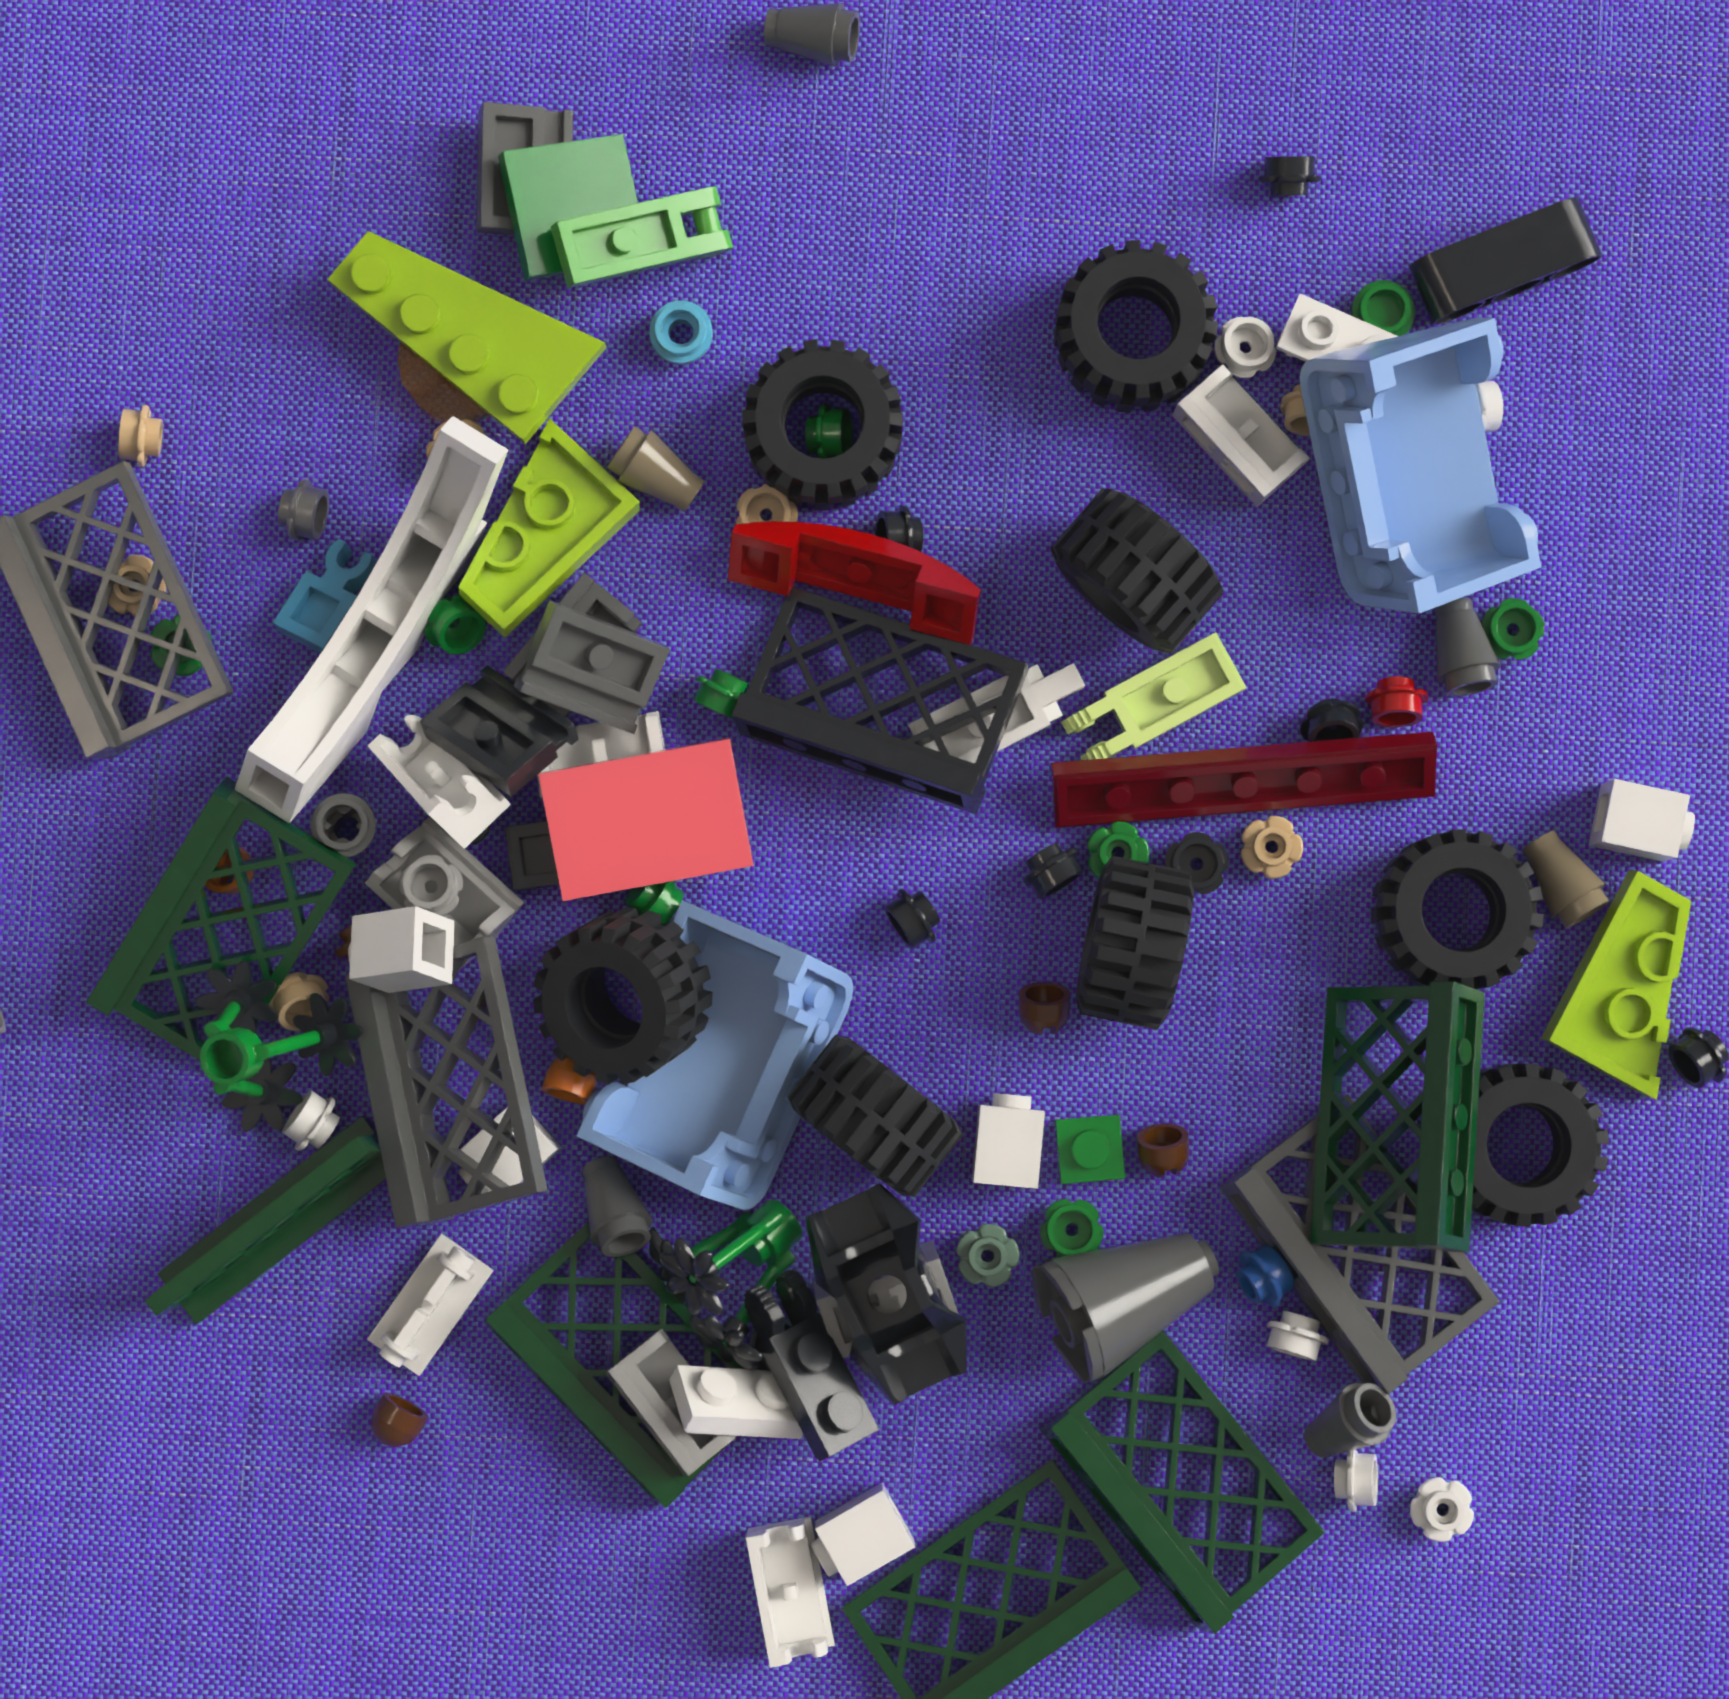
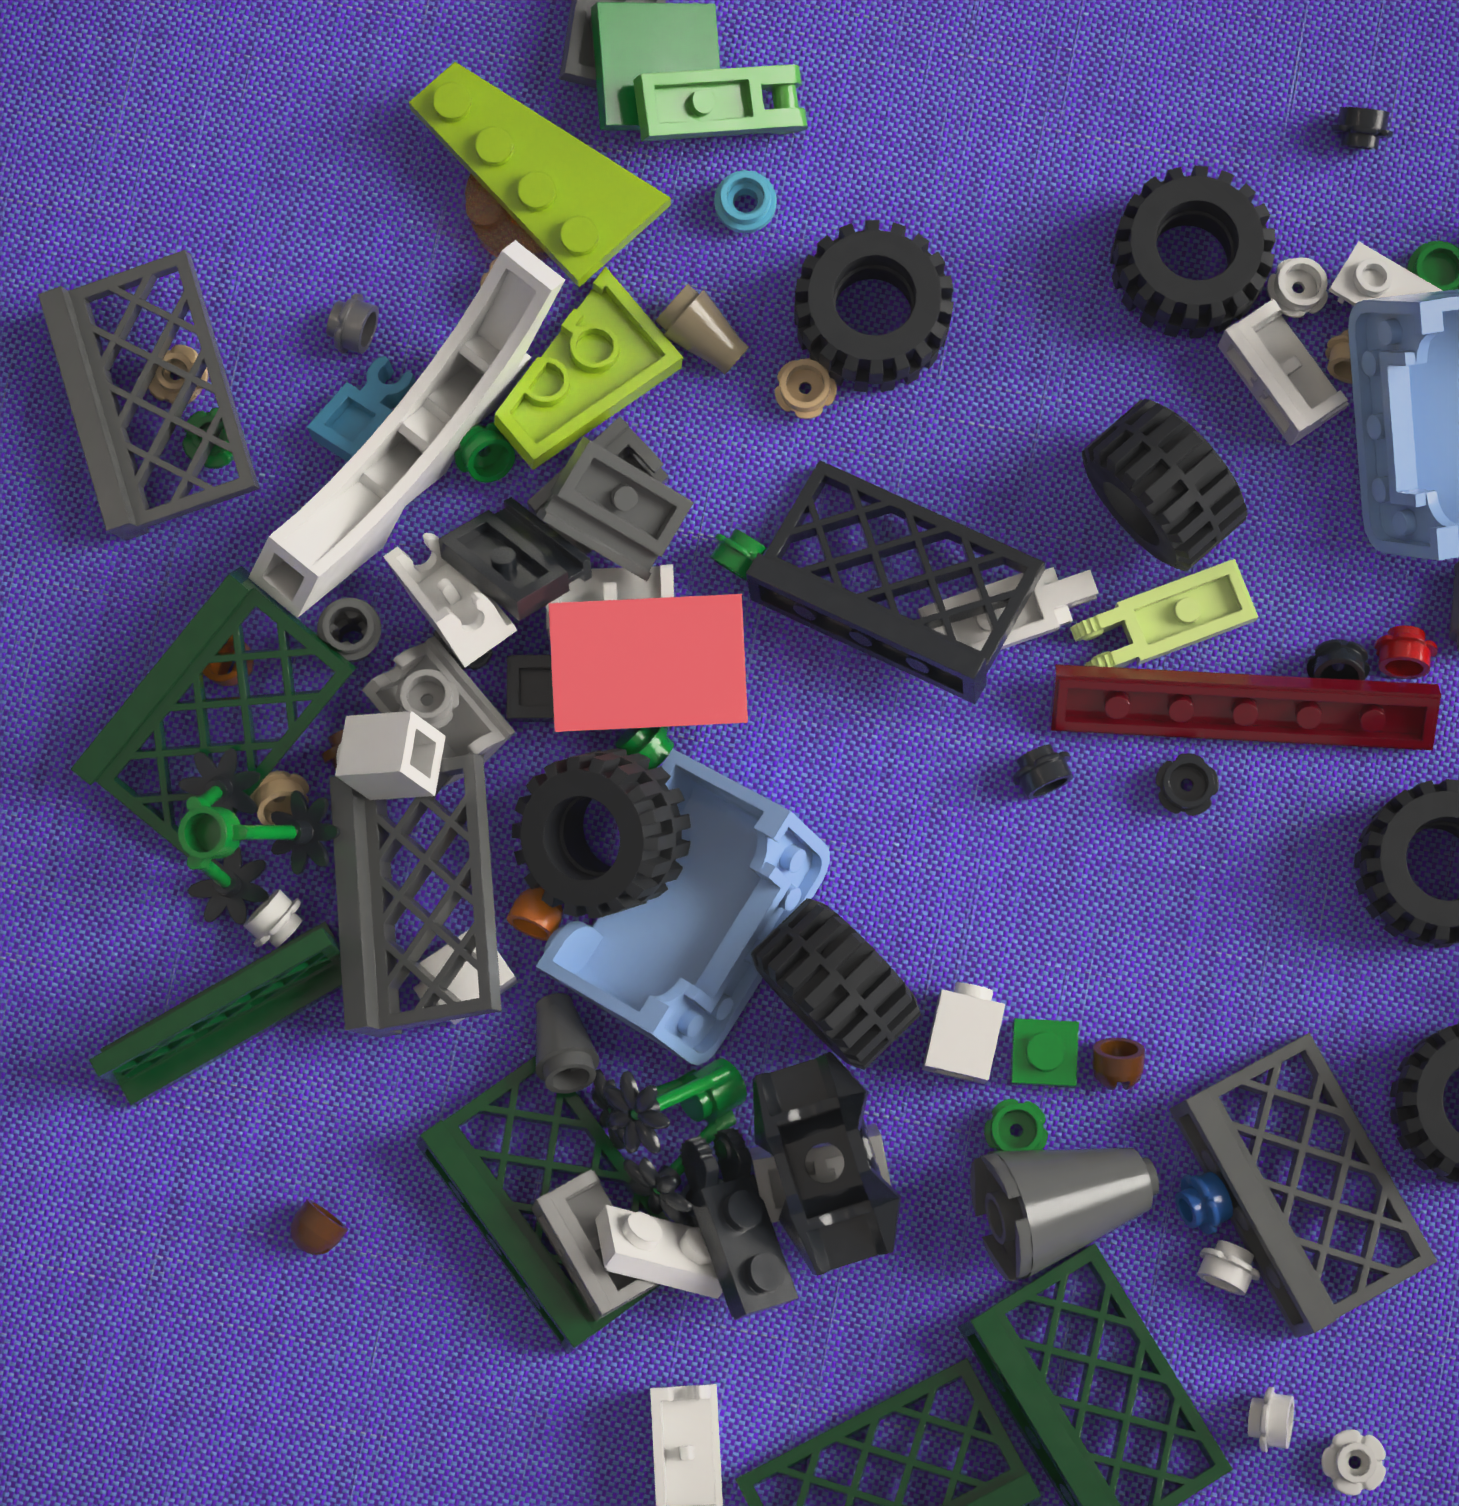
camera: 10 degrees right, 5 degrees down
(139, 435) = (203, 230): tan plate -> none
(429, 1305) = (365, 1118): white hinge -> none
(829, 432) = (878, 313): green plate -> none
(857, 565) = (889, 447): red slope -> none
(861, 1536) = (765, 1407): white brick -> none
(900, 527) = (932, 425): black plate -> none
(912, 917) = (897, 799): black plate -> none
(987, 1238) = (913, 1154): sand green plate -> none
(1044, 1006) = (1017, 904): reddish brown hinge -> none
(1117, 835) = (1109, 780): green plate -> none
(1135, 942) = (1116, 848): black tyre -> none
(1256, 856) = (1246, 779): tan plate -> none
(1353, 1420) = (1274, 1357): dark grey cone -> none
(1446, 1126) = (1406, 1050): dark green fence -> none

